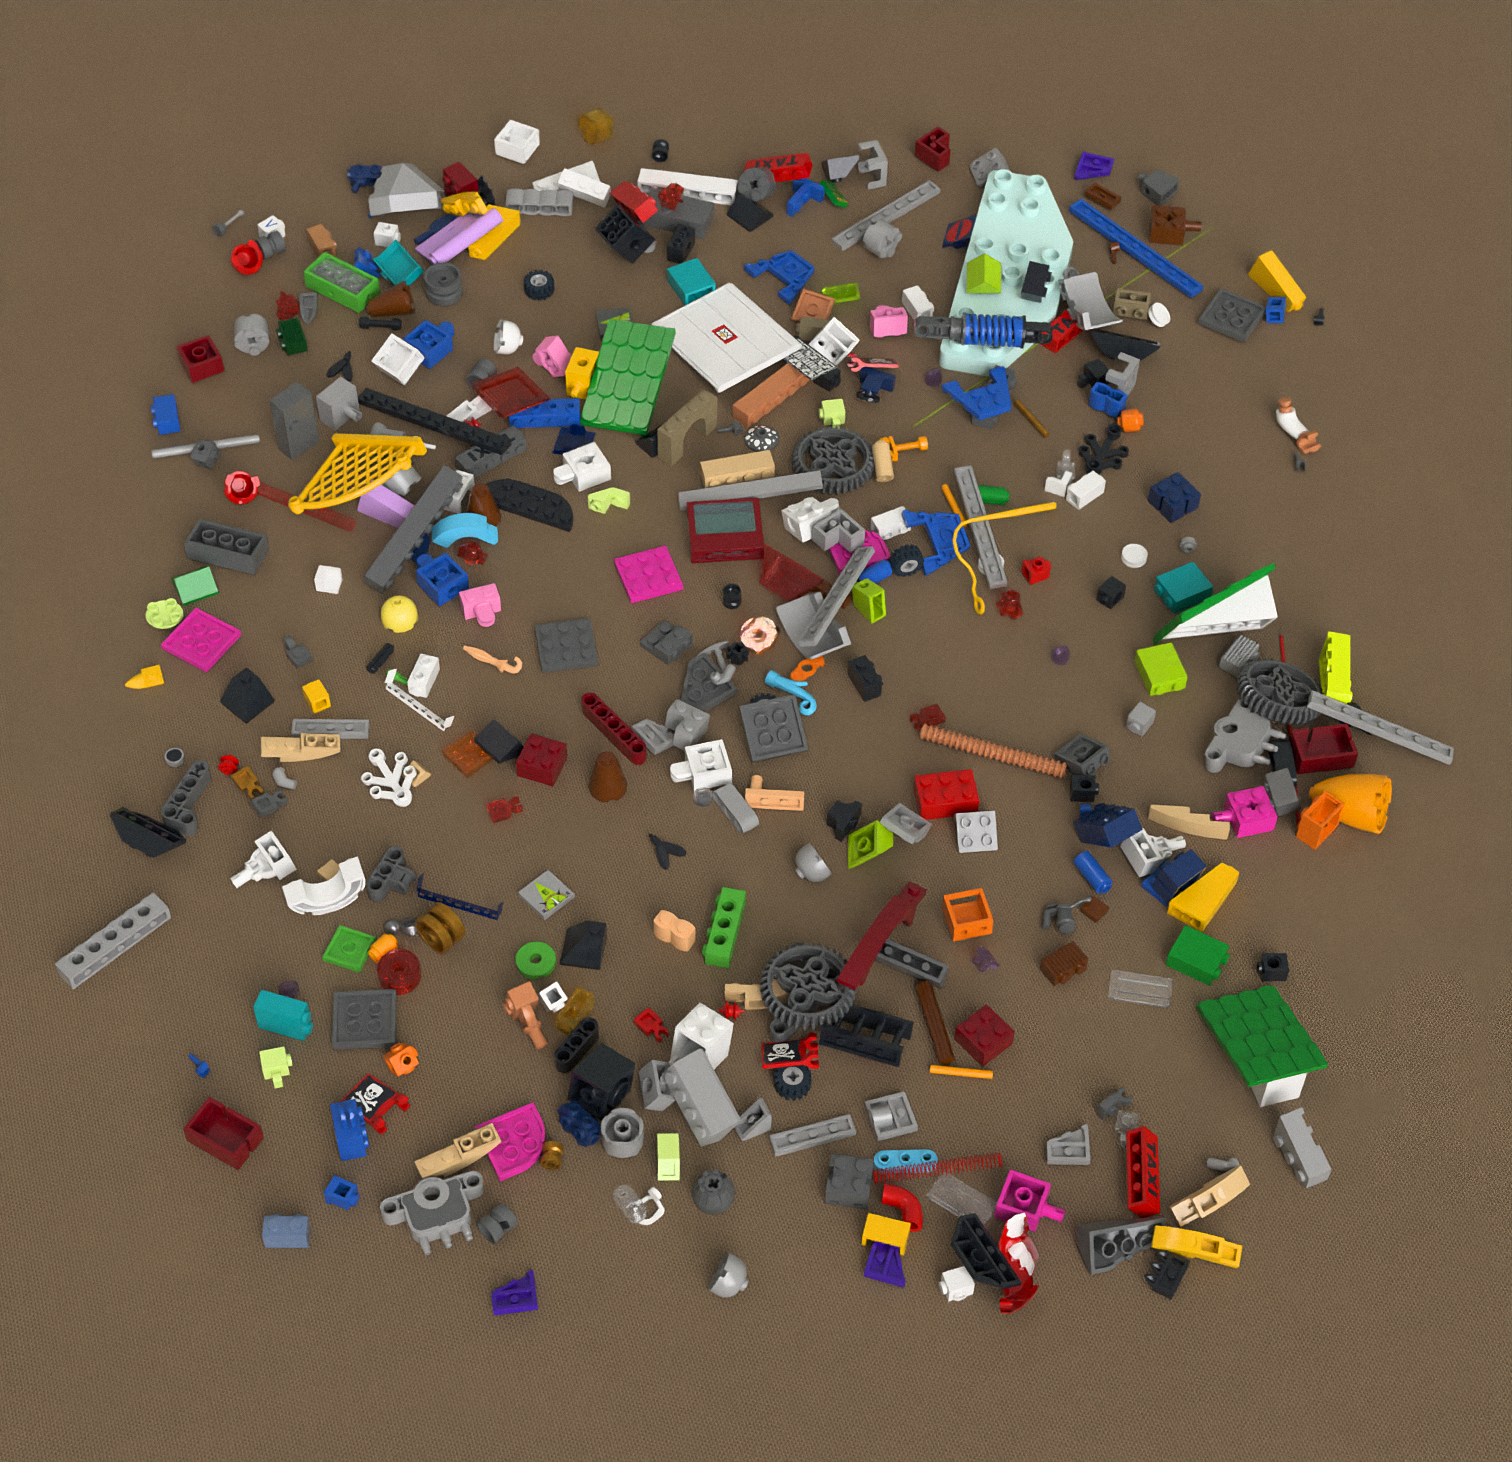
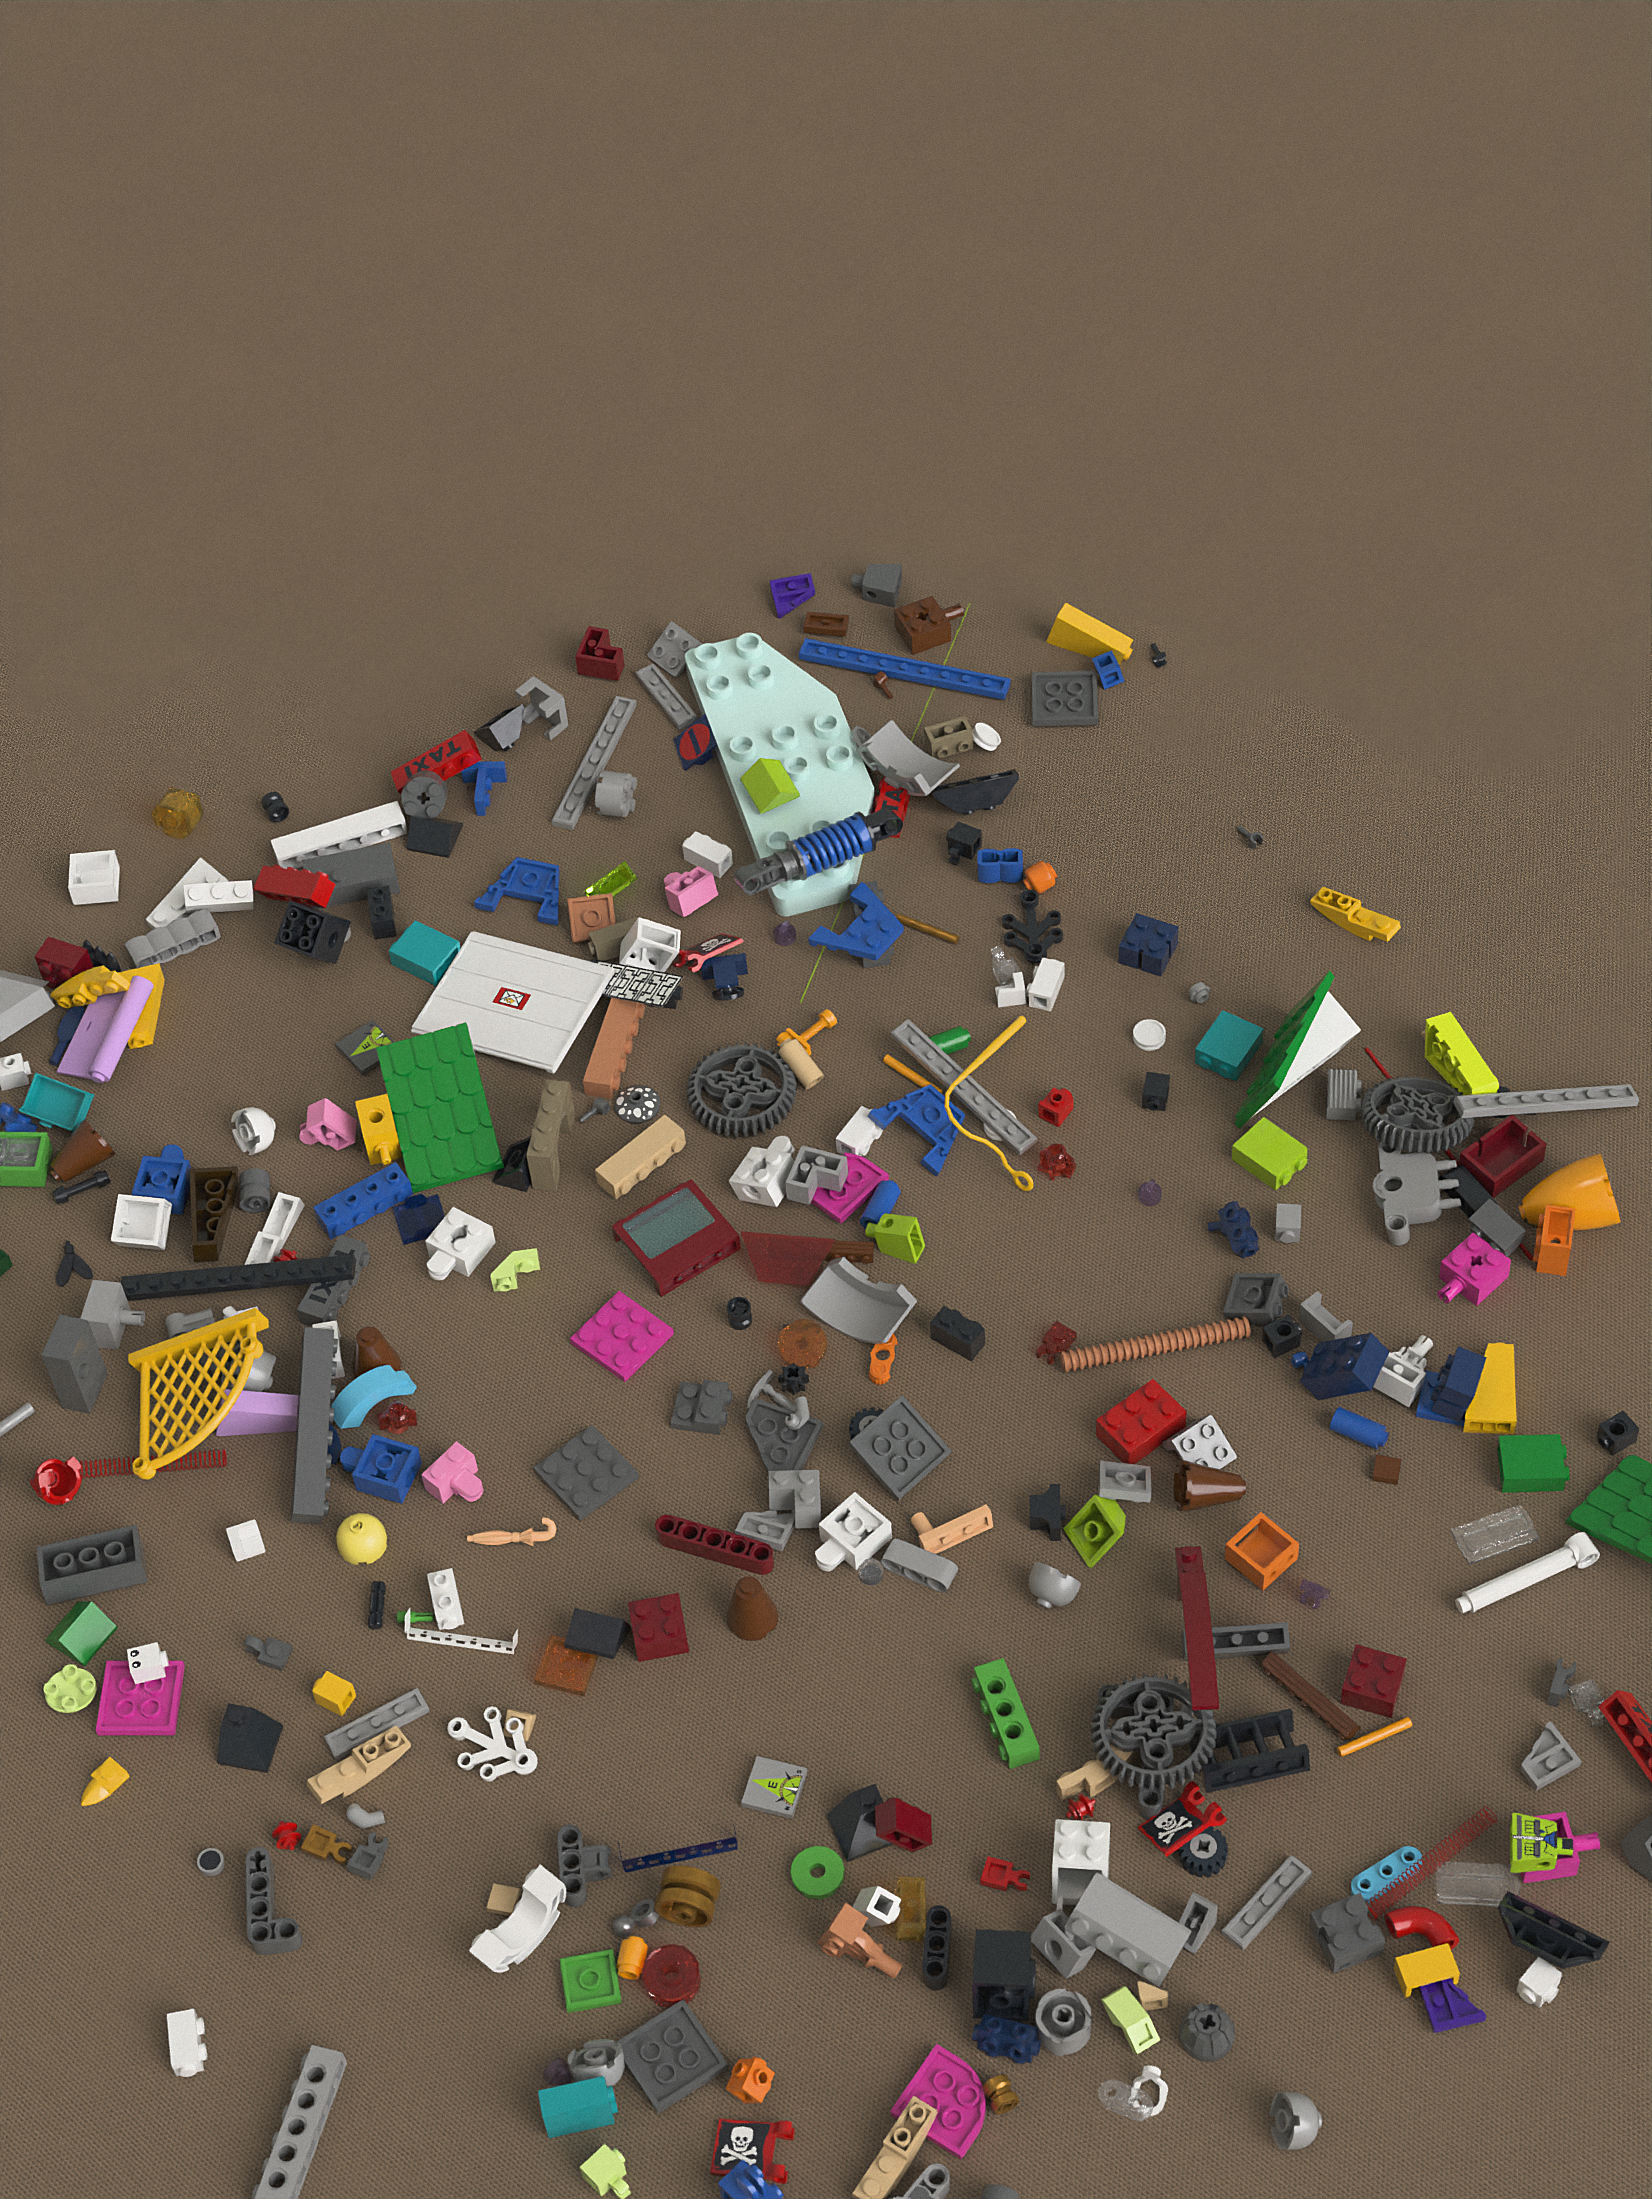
camera: 25 degrees left, 0 degrees up
(84, 852) = (185, 2042): none -> white brick
(145, 833) = (250, 1976): black wedge -> none
(216, 619) = (147, 1662): none -> white brick
(265, 862) = (419, 1930): white brick -> none
(318, 996) = (596, 2060): none -> light grey cylinder
(443, 284) = (128, 1100): dark grey wheel -> none
(445, 373) = (211, 1206): none -> dark brown wedge
(502, 810) = (653, 1713): clear red plate -> none
(510, 392) = (309, 1196): clear red piece -> none
(532, 503) = (423, 1319): black plate -> none
(539, 285) = (235, 1043): black wheel -> none
(606, 958) = (903, 1825): none -> dark red brick
(664, 848) = (869, 1659): black piece -> none
(671, 195) = (337, 859): clear red piece -> none
(674, 930) = (955, 1749): light nougat brick -> none
(690, 1150) = (1151, 1997): none -> tan slope
(755, 489) = (675, 1172): light grey tile -> none
(775, 680) = (883, 1386): medium azure plant -> none
(832, 412) = (701, 1033): yellowish green brick -> none
(834, 194) = (518, 764): green tile -> none
(836, 596) = (865, 1253): light grey tile -> none
(891, 1116) = (1337, 1831): light grey plate -> none
(906, 560) = (909, 1168): black wheel -> none
(961, 856) = (1205, 1486): none -> reddish brown cone
(962, 194) = (666, 696): none -> light grey tile
(1011, 1191) = (1535, 1844): none -> lime torso
(1022, 1257) = (1584, 1908): red animal -> none
(1035, 282) = (835, 764): black brick -> none
(1064, 963) = (1400, 1550): reddish brown brick -> none
(1065, 920) = (1367, 1500): dark grey piece -> none
(1102, 705) = (1236, 1226): none -> dark blue brick
(1117, 789) = (1321, 1321): none -> light grey panel
(1127, 379) = (1000, 832): light grey panel -> none
(1182, 820) = (1410, 1316): tan slope -> none
(1188, 1028) = (1577, 1552): none -> white piece
(1289, 422) = (1210, 795): piece -> none
(1332, 545) = (1349, 914): none -> yellow slope

